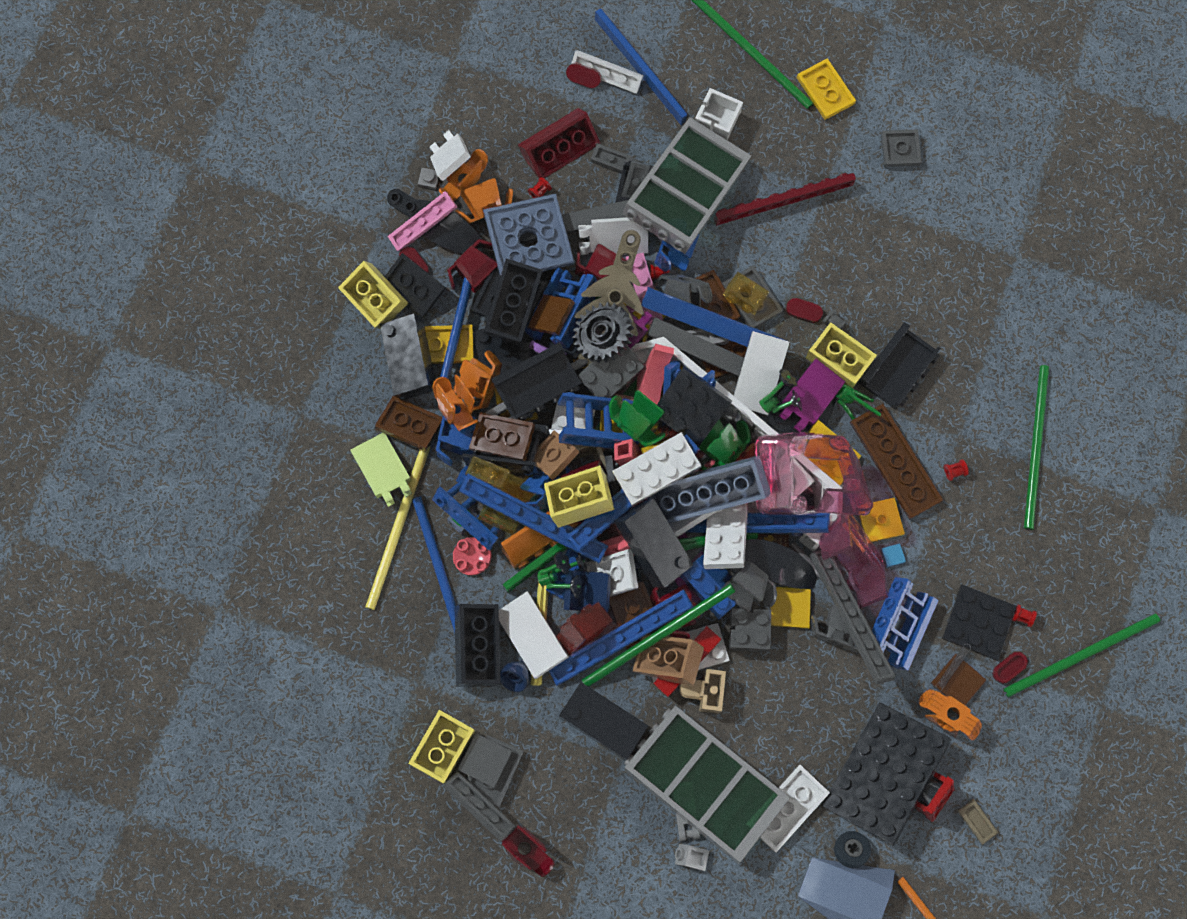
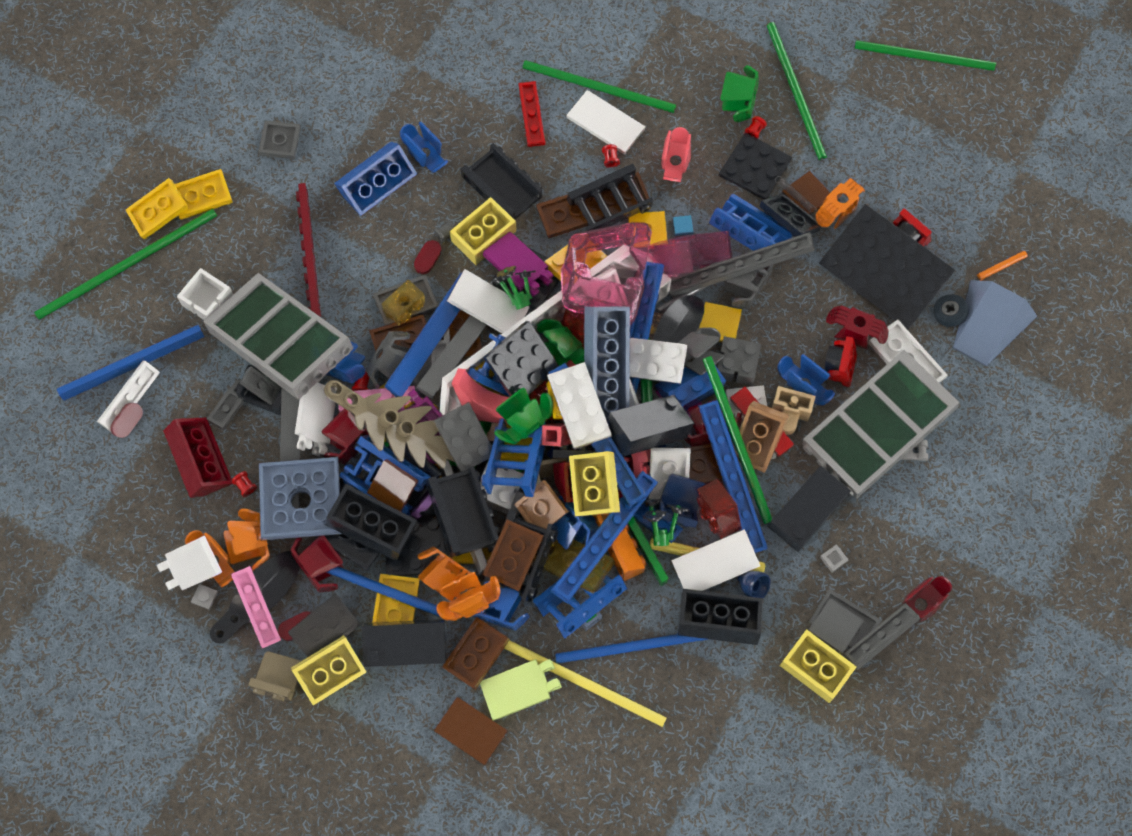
camera: 75 degrees left, 5 degrees down
(338, 432) = (470, 731): none -> reddish brown tile
(362, 249) = (275, 677): none -> dark tan bracket
(471, 556) = (626, 611): coral dish -> none
(489, 473) = (551, 573): clear yellow brick -> none
(556, 753) = (834, 558): none -> light grey plate
(601, 347) = (413, 433): black gear -> none
(691, 857) = (944, 451): light grey bracket -> none
(749, 689) = (808, 370): none -> blue piece
(766, 736) = (841, 361): none -> red piece
(800, 52) = (156, 208): none -> yellow plate
(809, 763) = (868, 325): none -> dark red piece
(848, 395) = (524, 231): green plant -> none
(878, 245) = (376, 178): none -> blue slope
(910, 457) = (610, 182): none -> black fence
(925, 663) = (789, 215): none -> black plate
(930, 276) = (415, 142): none -> blue piece
(977, 821) = (934, 203): dark tan tile -> none
(982, 537) = (680, 146): none -> coral piece
(988, 383) = (531, 114): none -> red tile
(995, 460) = (605, 121): none -> white tile
(1010, 667) = (800, 150): dark red tile -> none
(1059, 590) = (738, 90): none -> green piece
(1162, 801) = (925, 55): none -> green piece

